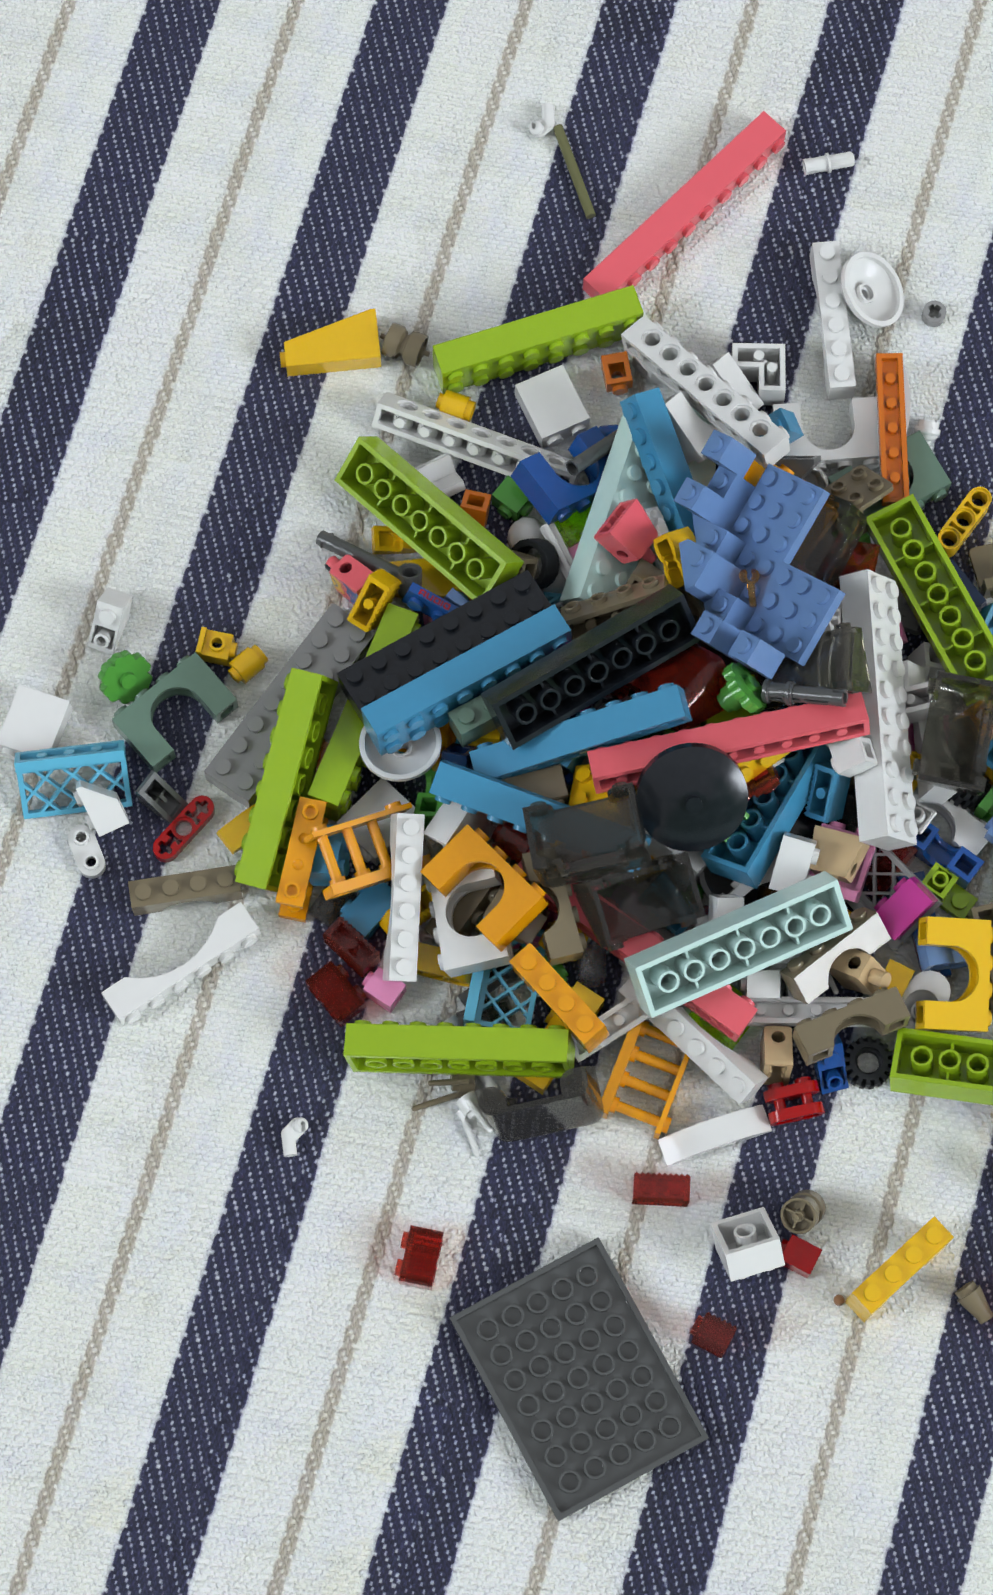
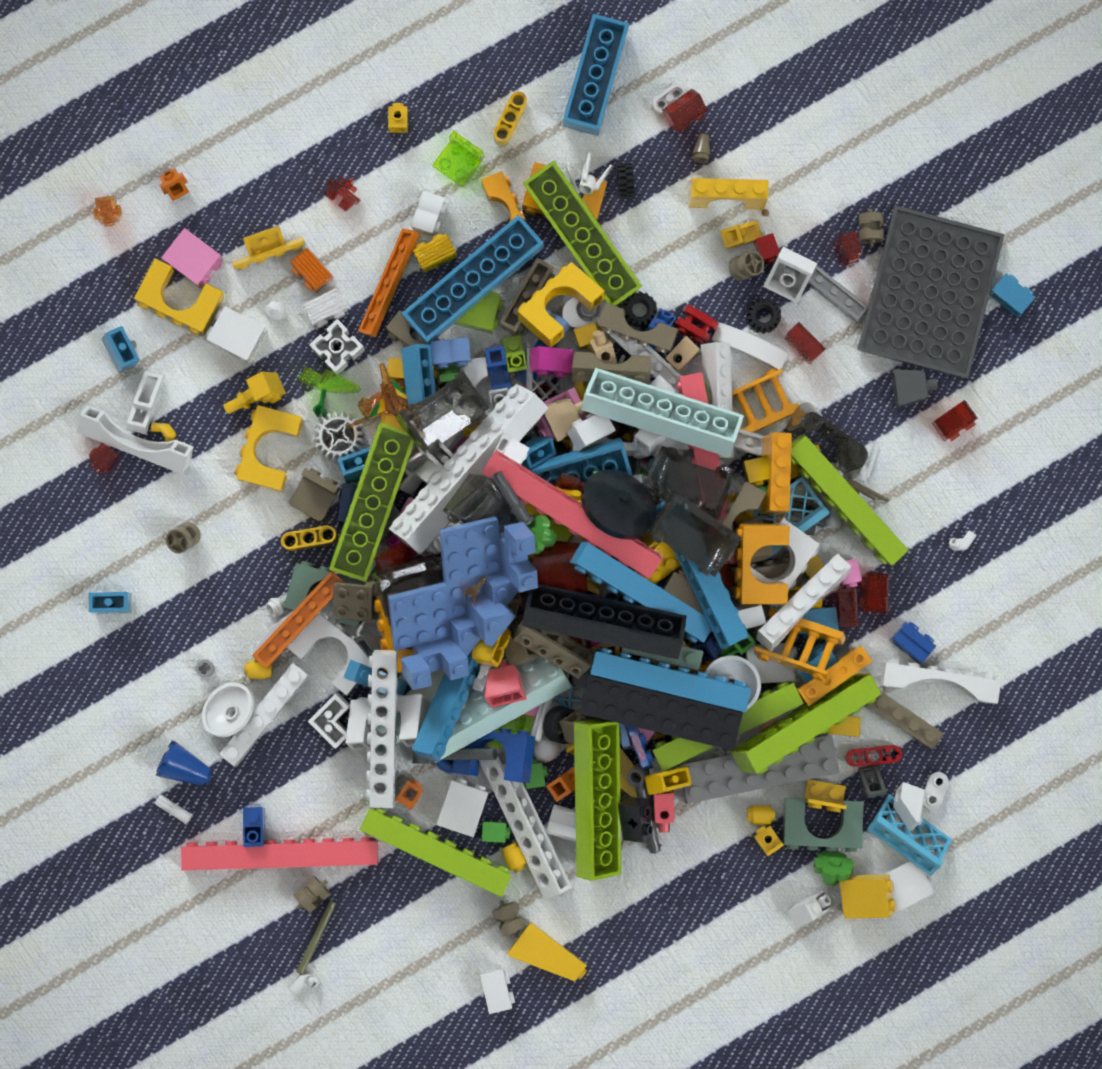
camera: 140 degrees left, 10 degrees up
(62, 676) = (868, 896): none -> yellow brick
(196, 738) = (824, 794): none -> yellow bracket
(248, 979) = (913, 642): none -> blue brick
(351, 272) = (496, 990): none -> white brick
(371, 538) = (635, 819): none -> black brick
(486, 1459) = (1012, 295): none -> dark azure brick
(499, 412) = (495, 832): none -> bright green brick
(502, 1250) = (911, 386): none -> dark grey torso
(618, 203) = (312, 894): none -> dark tan wheel
(680, 1281) = (837, 294): none -> light grey tile
(710, 1386) = (871, 227): none -> dark tan wheel
(736, 210) = (253, 826): none -> blue slope
(737, 1163) = (763, 304): none -> black tyre
(841, 1248) = (741, 235): none -> yellow slope
(859, 204) = (183, 766): none -> blue cone
(883, 346) = (256, 671): none -> yellow brick

